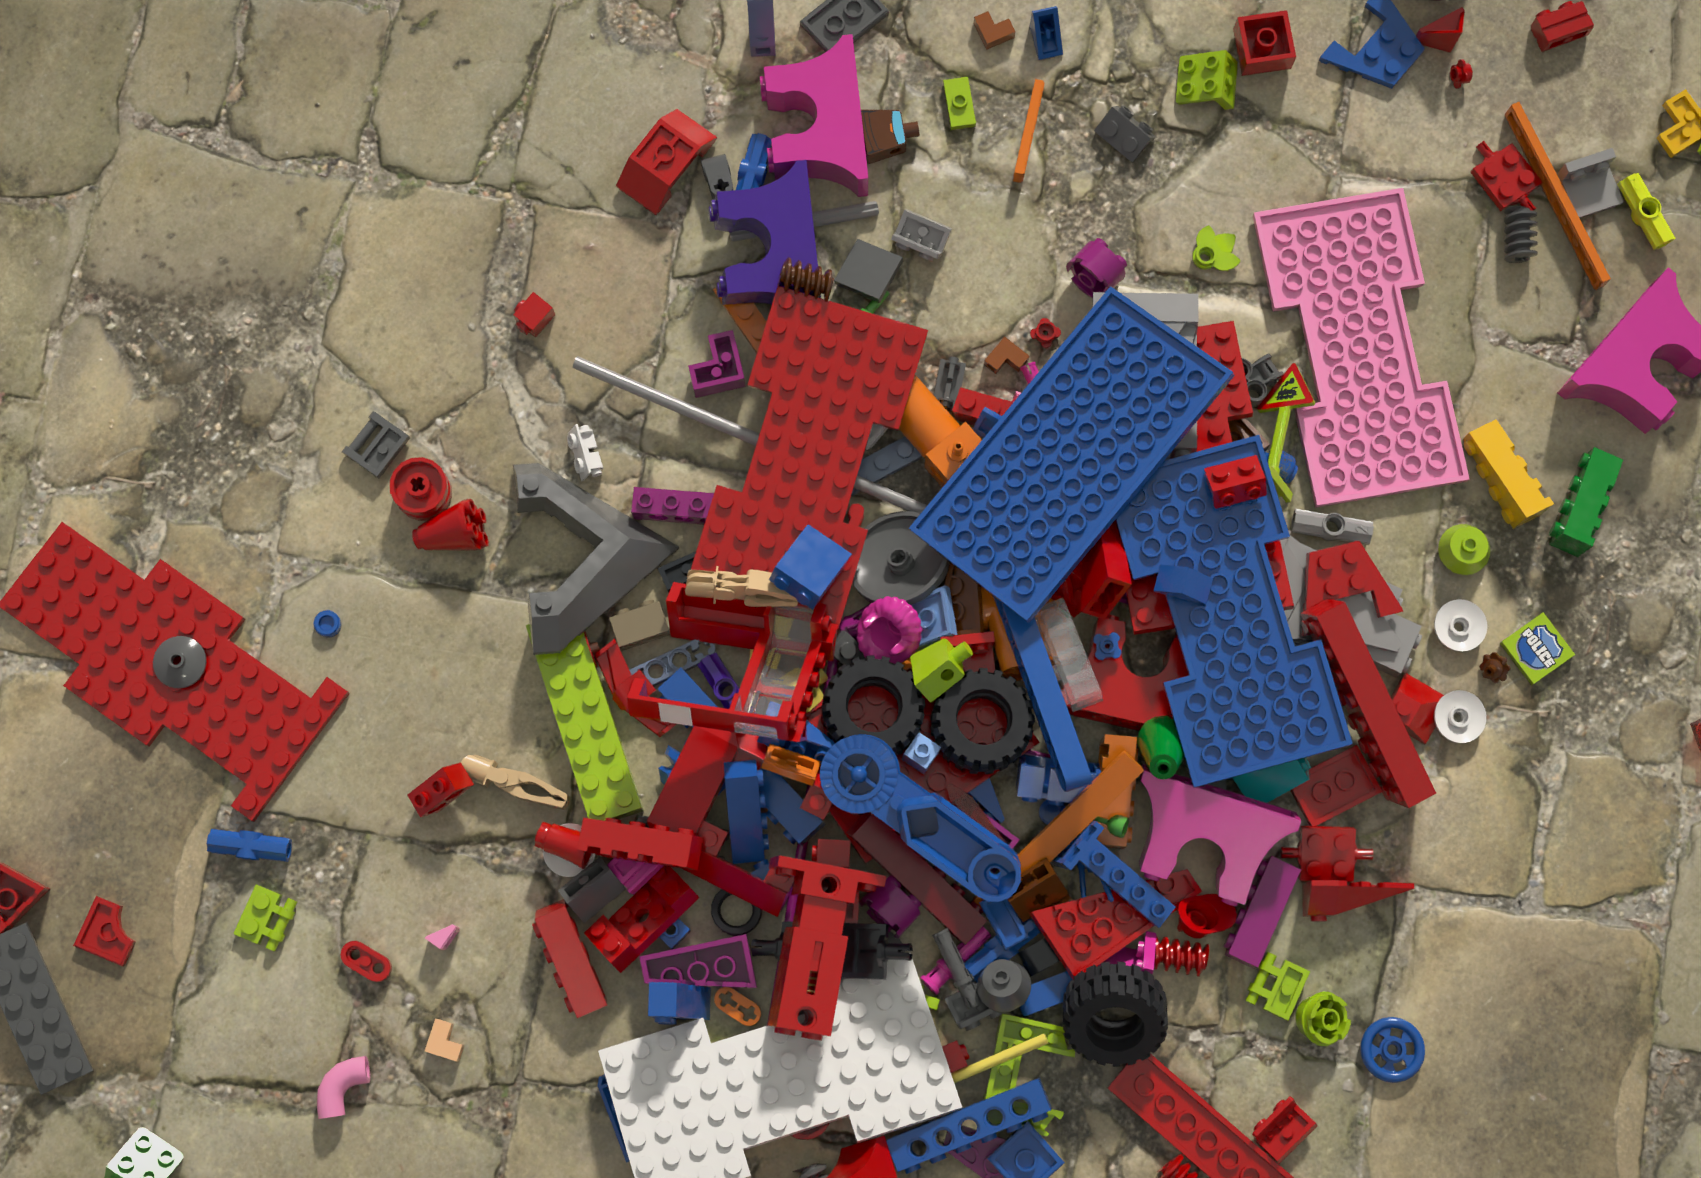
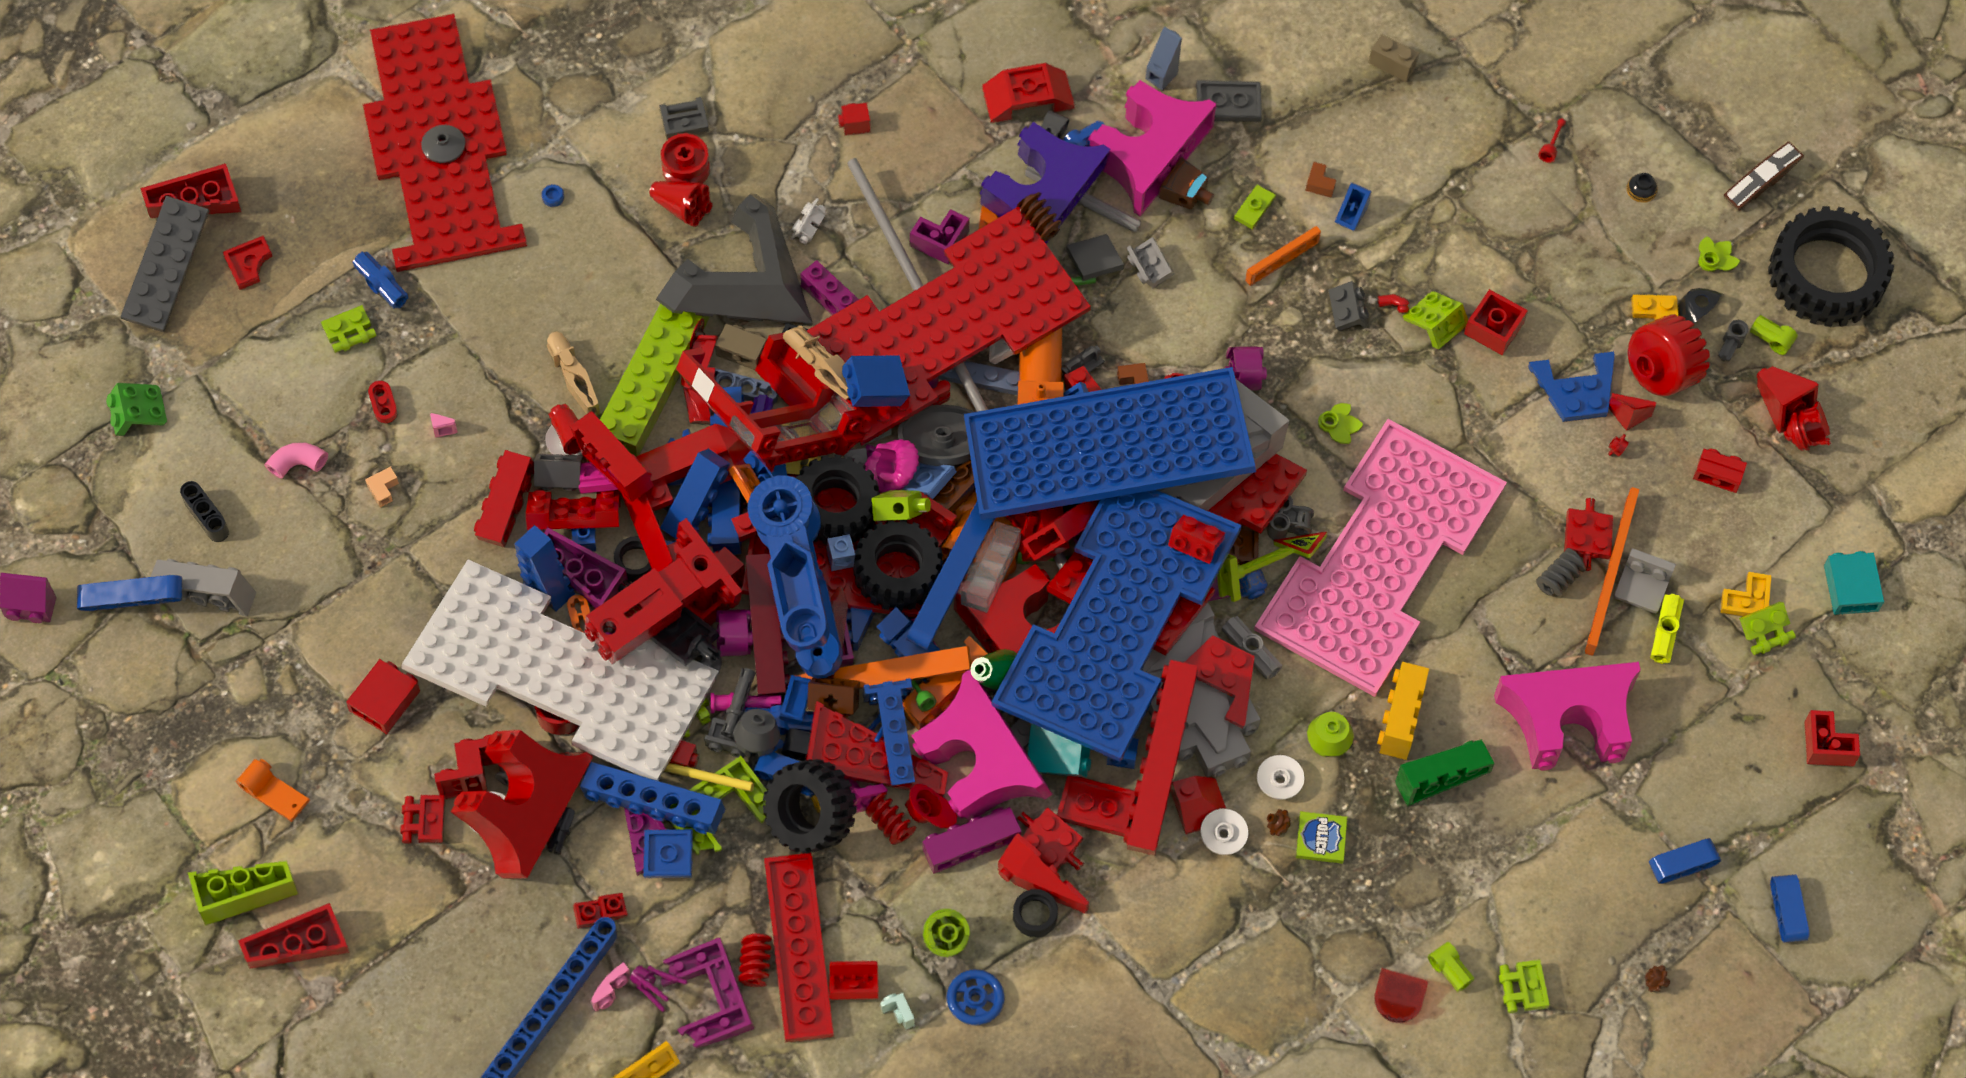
camera: 40 degrees right, 15 degrees down
(440, 789) = (524, 337): red brick -> none
(1101, 651) = (1021, 589): blue plate -> none
(1157, 92) = (1393, 299): none -> red arm
(1183, 583) = (1103, 574): blue slope -> none
(1285, 989) = (945, 897): lime plate -> none
(1348, 1120) = (902, 1013): none -> light aqua bracket
(1388, 916) = (1035, 930): none -> black tyre

